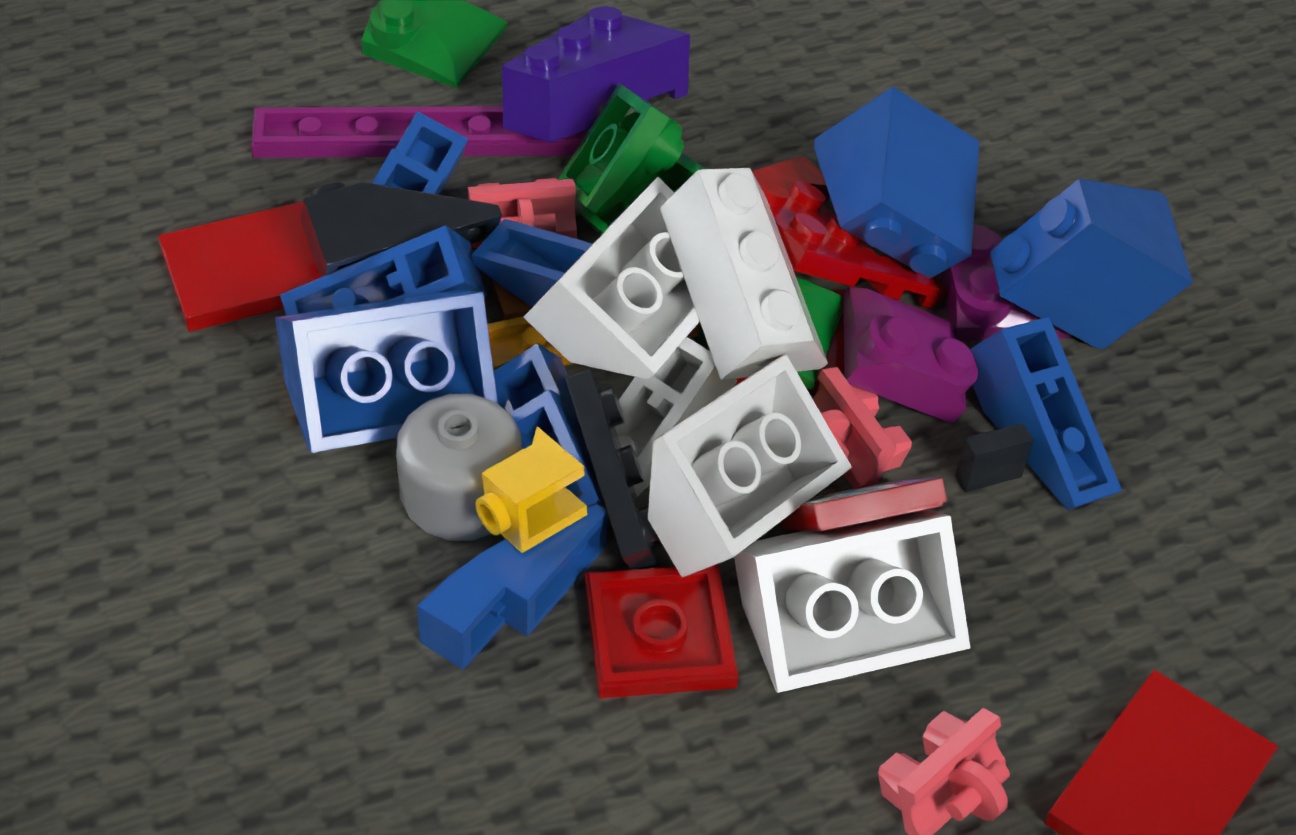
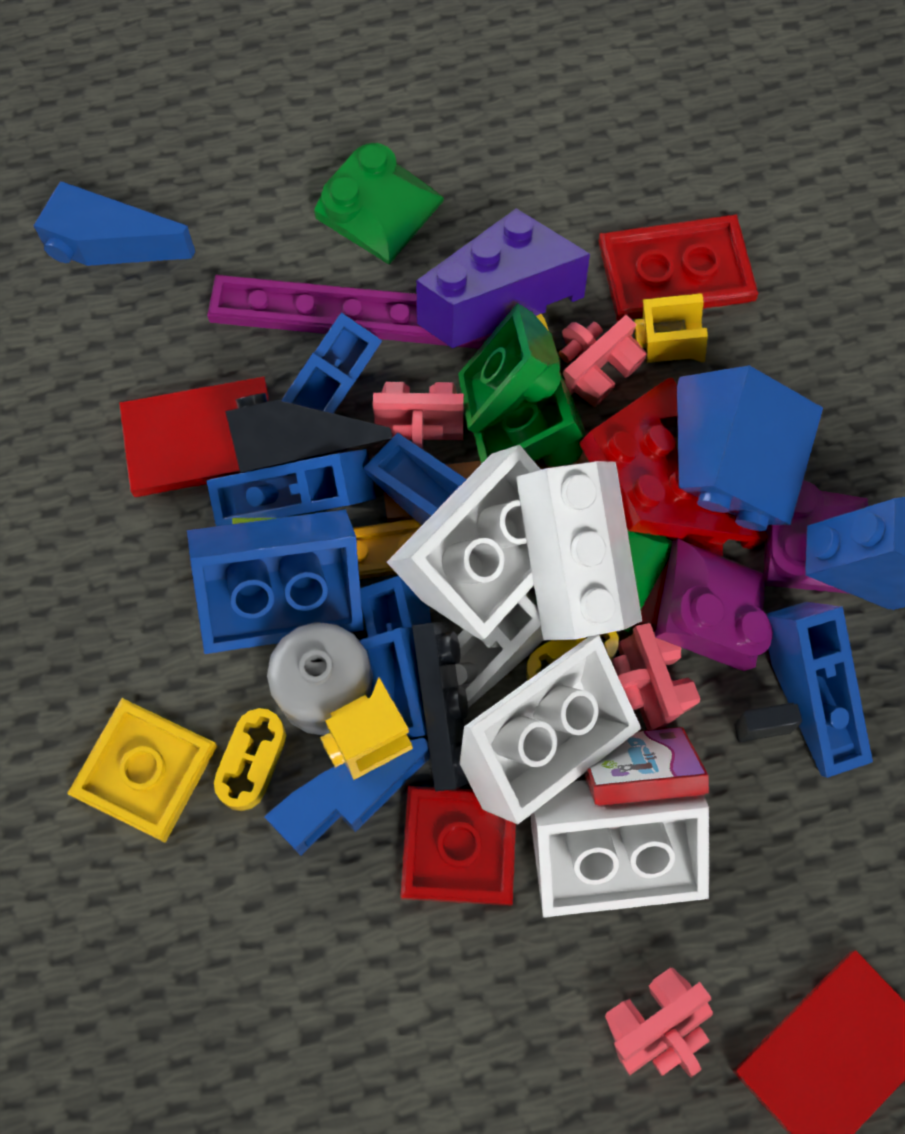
camera: 15 degrees right, 20 degrees up
(121, 75) = (105, 231): none -> blue slope
(246, 601) = (143, 770): none -> yellow tile
(369, 567) = (238, 754): none -> yellow beam
(712, 136) = (615, 346): none -> coral hips
(784, 63) = (678, 261): none -> red tile
(792, 108) = (672, 328): none -> yellow window

